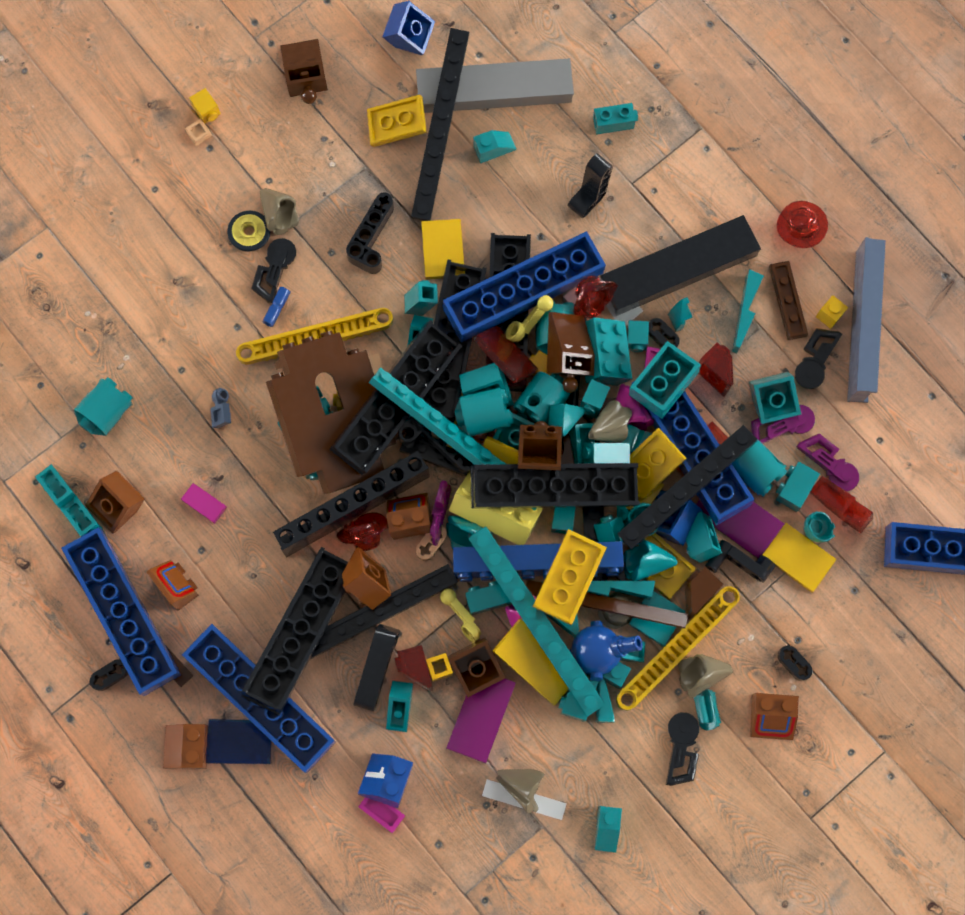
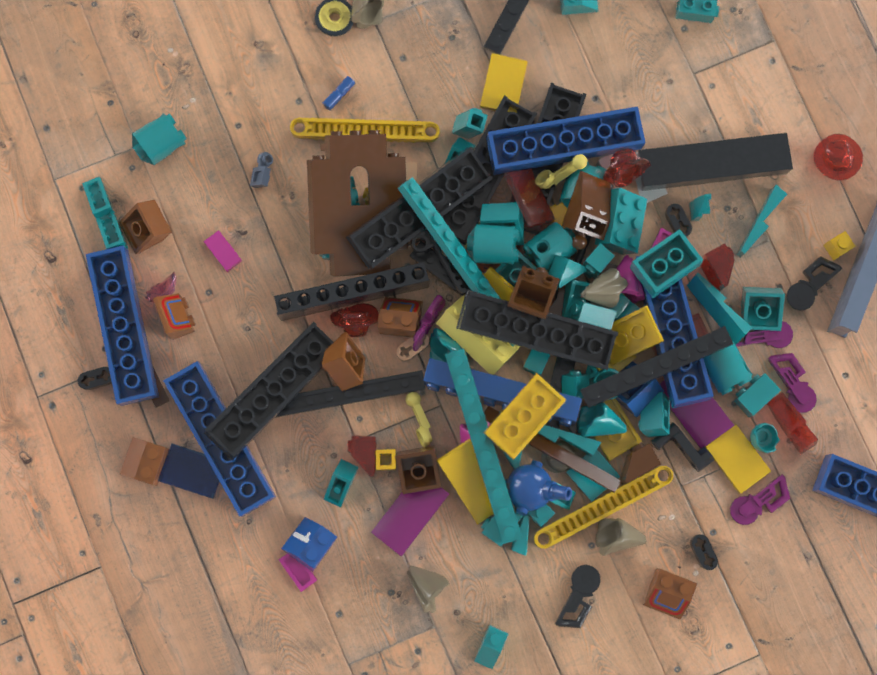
camera: 15 degrees right, 5 degrees up
(155, 558) = (167, 287): none -> clear pink hat
(279, 255) = (356, 46): black piece -> none
(373, 230) = (446, 48): black beam -> none
(376, 666) = (330, 442): black beam -> none
(486, 599) = (445, 411): teal brick -> none
(545, 805) = (442, 610): white sticker -> none
(593, 186) = (657, 66): black beam -> none
(637, 335) = (655, 215): teal brick -> none
(707, 710) = (612, 570): teal piece -> none
(724, 406) = (714, 304): none -> teal slope
(788, 300) = (803, 223): reddish brown tile -> none
(824, 605) = (747, 508): none -> magenta piece

